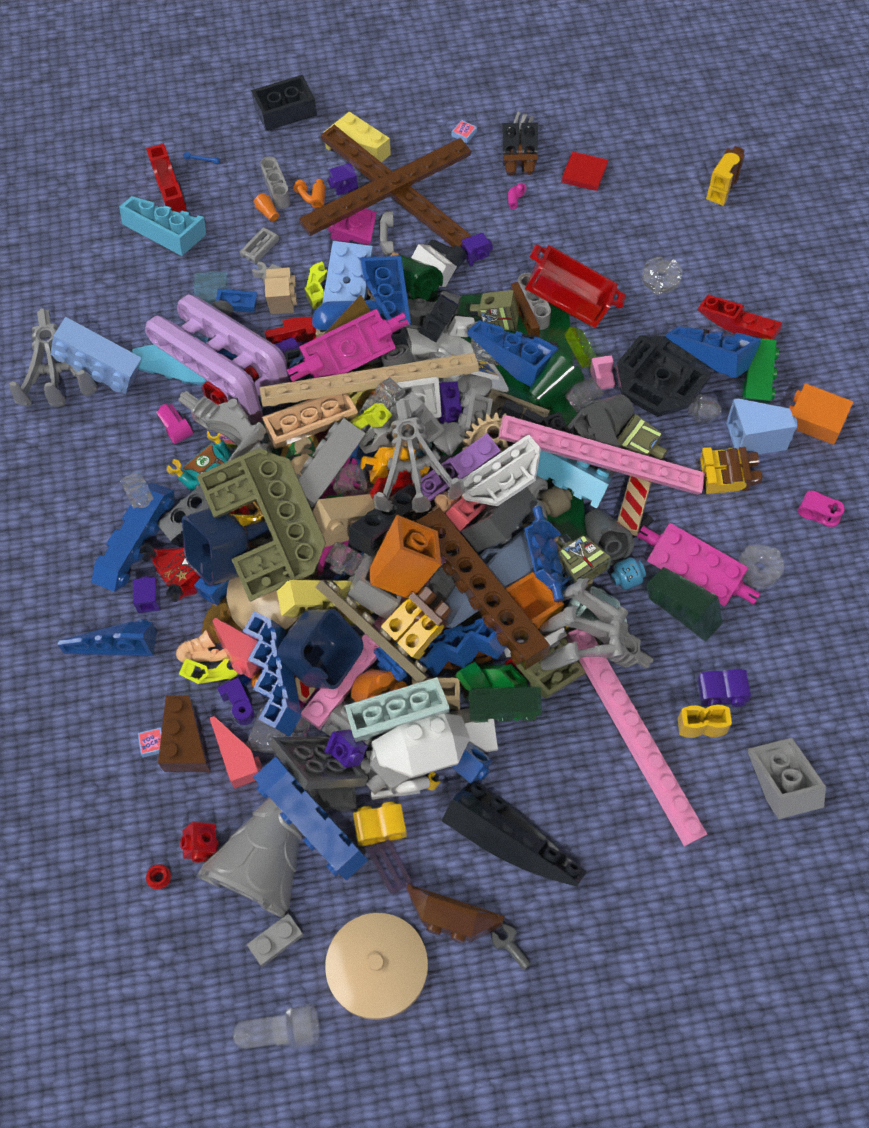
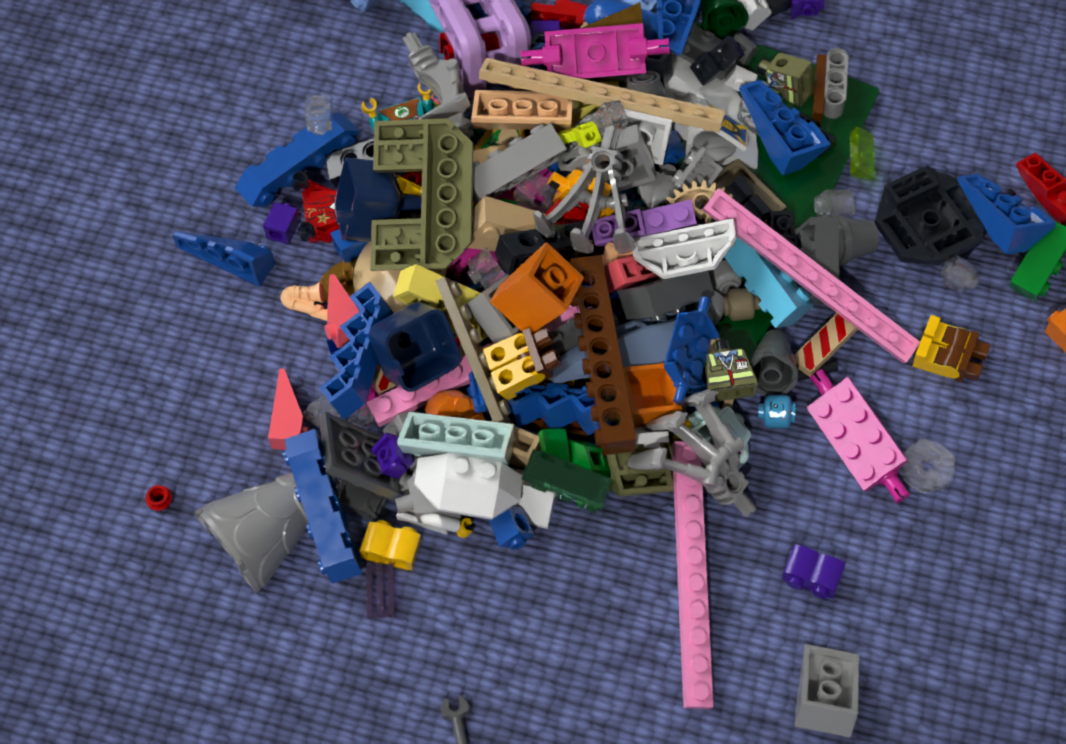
camera: 25 degrees right, 0 degrees up
(150, 742) = (216, 369): tile -> none
(176, 427) = (395, 65): dark pink piece -> none
(181, 737) = (244, 376): reddish brown wedge -> none
(199, 841) = (211, 481): red brick -> none
(219, 673) = (312, 331): neon yellow piece -> none
(241, 706) = (318, 364): dark purple leg -> none
(275, 940) = (236, 607): light grey plate -> none
(297, 1028) = (213, 694): clear piece -> none
(376, 966) = (319, 677): tan dish -> none
(449, 402) = (677, 151): dark purple leg -> none
(452, 916) = (415, 665): reddish brown wedge -> none
(509, 835) = (510, 612): black wedge -> none
(554, 380) = (807, 176): dark green cone -> none
(572, 285) = (881, 82): red container -> none
(602, 373) = (870, 191): bright pink panel -> none
(642, 439) = (869, 279): olive torso -> none
(661, 284) = (993, 122): clear plate -> none
(686, 602) = (822, 468): clear green wedge -> none
(708, 721) = (778, 596): yellow brick -> none
(760, 426) = (1009, 320): light blue slope -> none
(820, 508) = (1028, 435): dark pink piece -> none

